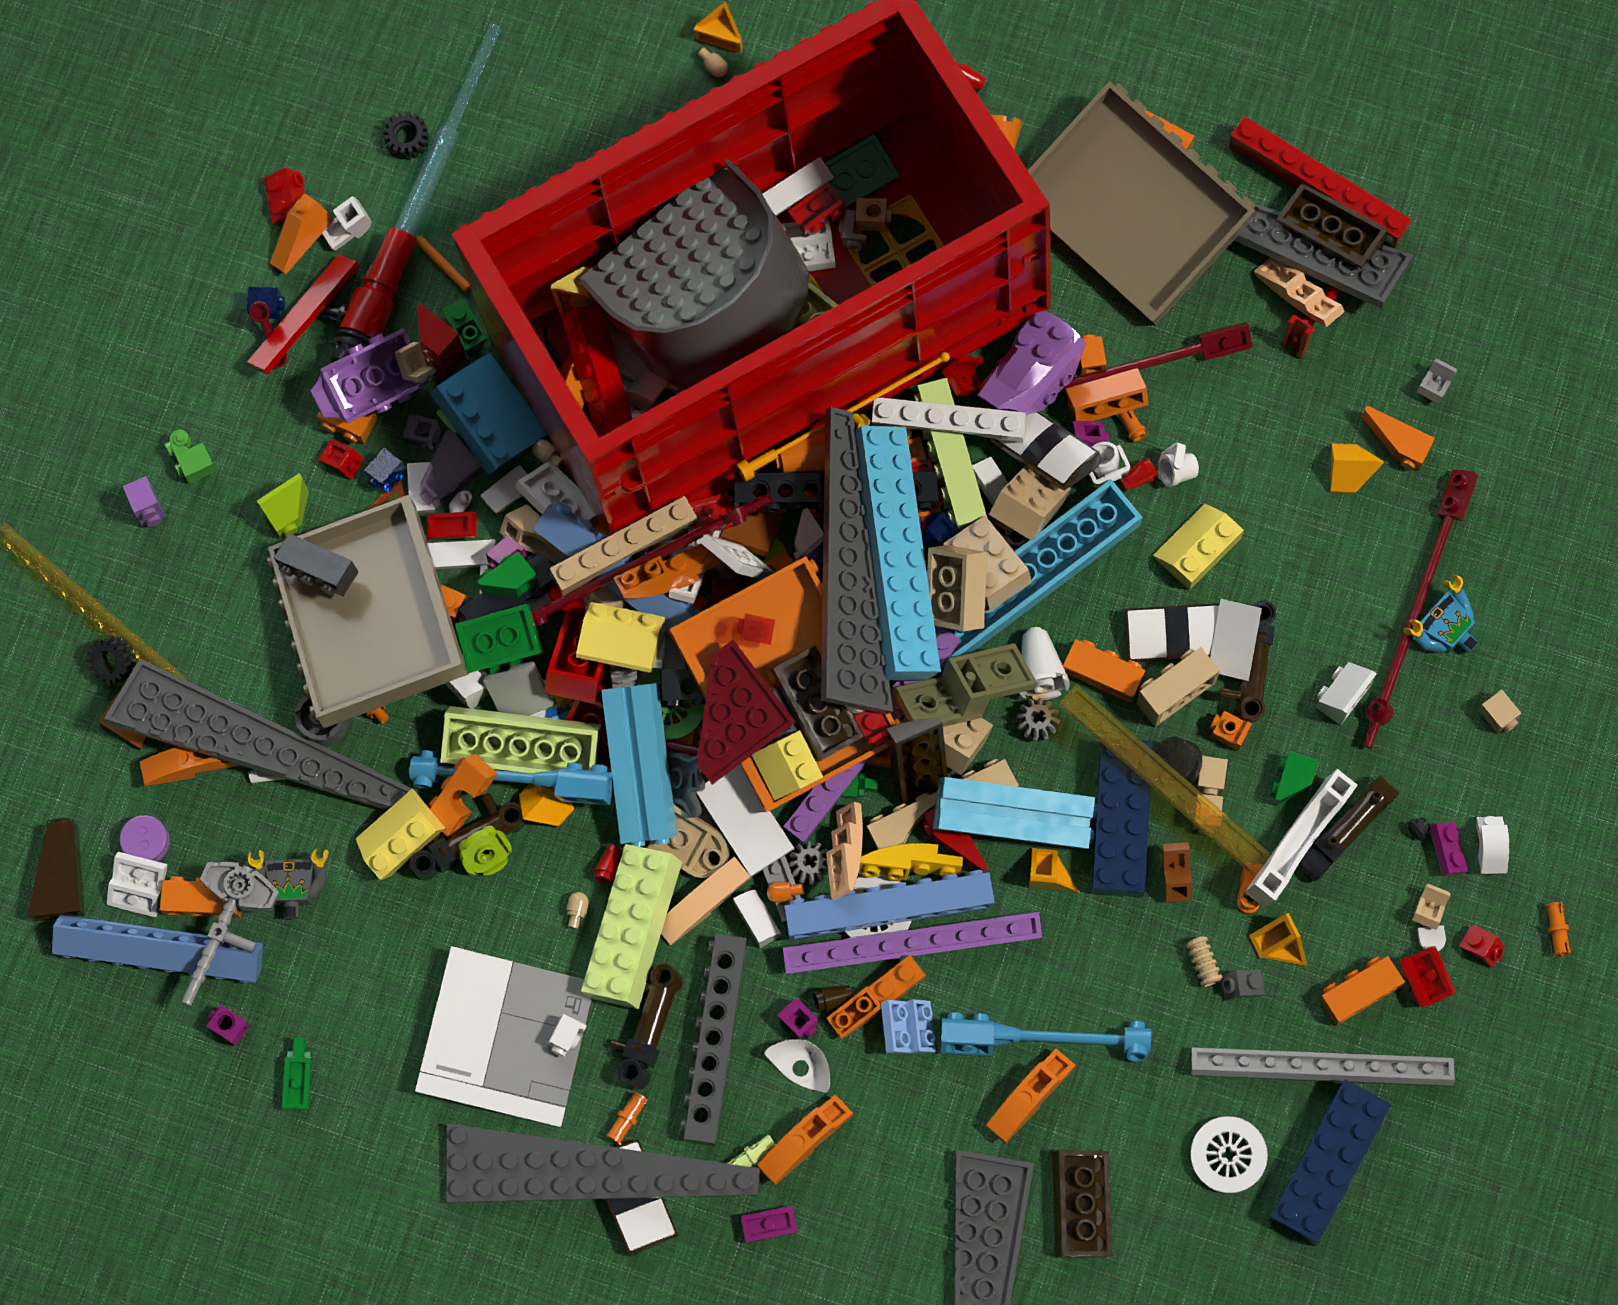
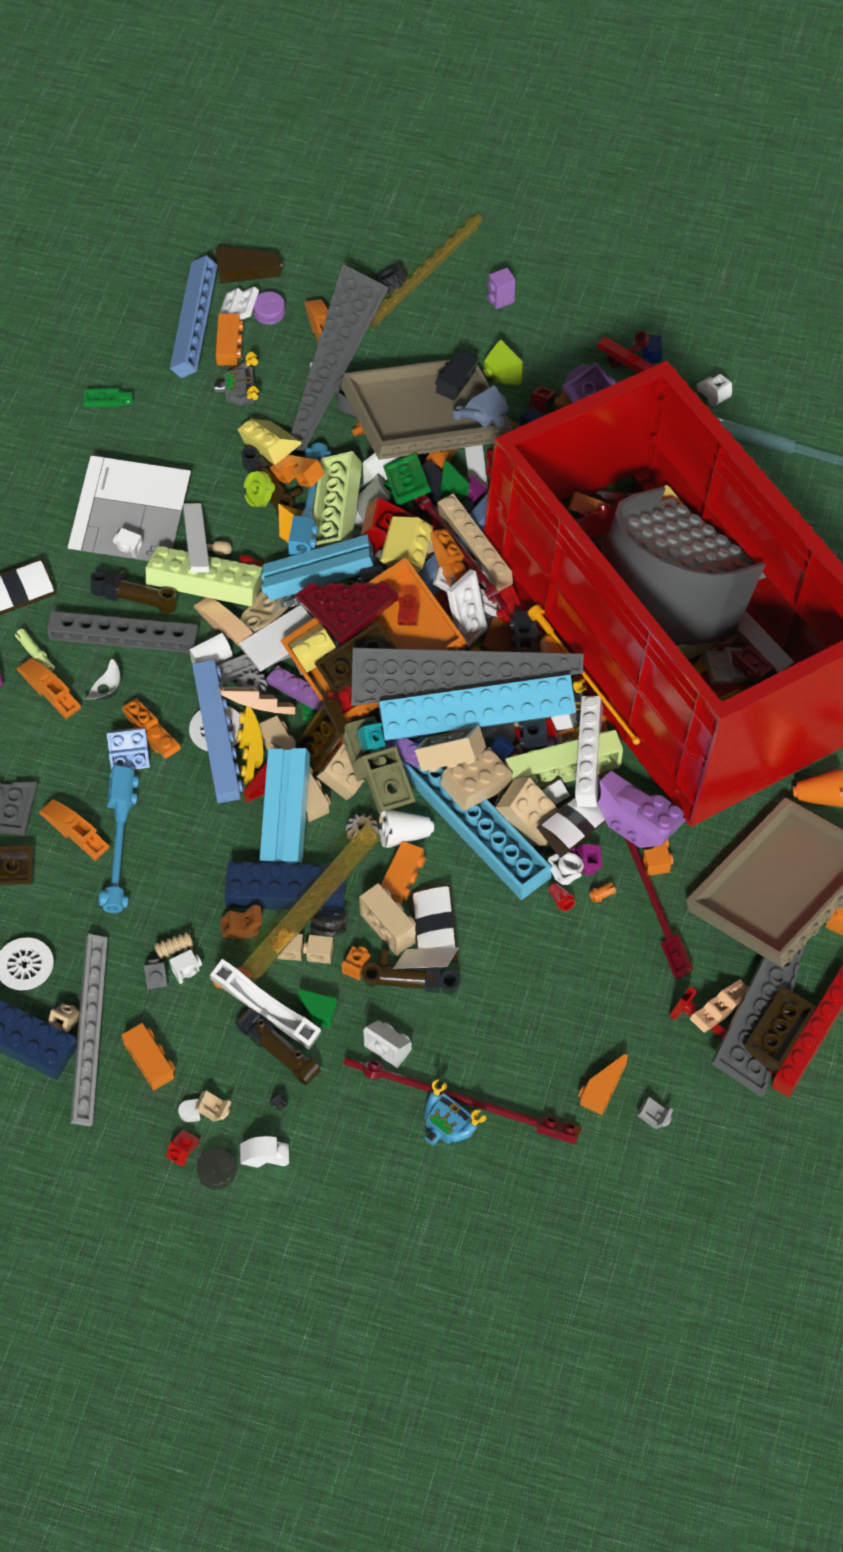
camera: 85 degrees right, 15 degrees down
(194, 461) = (535, 315): bright green brick -> none
(238, 1027) = (142, 358): magenta brick -> none
(239, 888) = (228, 353): light grey bar -> none
(283, 191) = (734, 358): red bracket -> none
(301, 229) = (707, 363): orange slope -> none
(385, 523) = (485, 408): none -> sand blue torso
(406, 149) = (787, 415): black tyre -> none
(522, 1167) = (35, 533): dark grey wing -> none
(571, 936) = (195, 538): none -> white tile
(627, 1118) = (70, 583): orange pin -> none
(783, 891) = (228, 665): orange cylinder -> none
(796, 1010) = (136, 681): magenta brick -> none
(831, 997) = (152, 701): dark brown cone -> none
(847, 227) = (737, 687): light grey bracket -> none
(912, 942) = (191, 752): medium lavender plate -> none
(933, 690) = (371, 738): none -> teal brick
(962, 376) = (630, 768): red bracket -> none
(1049, 872) = (244, 839): light orange slope -> none
(1107, 396) = (622, 870): orange brick -> none
(1176, 466) = (568, 921): white piece -> none
(1199, 545) = (504, 940): light yellow slope -> none
(1234, 945) = (185, 965): none -> white brick
(1279, 941) = (189, 1000): light orange slope -> none
(1310, 1098) = (67, 1013): none -> tan brick
(1351, 467) = (578, 1047): light orange slope -> none
(1427, 977) = (156, 1102): red bracket -> none
(1448, 849) = (261, 1121): magenta plate -> none
(1500, 712) = (374, 1161): tan brick -> none
(1512, 903) = (216, 1169): none -> clear smoke head
(1558, 929) = (195, 1205): orange pin -> none

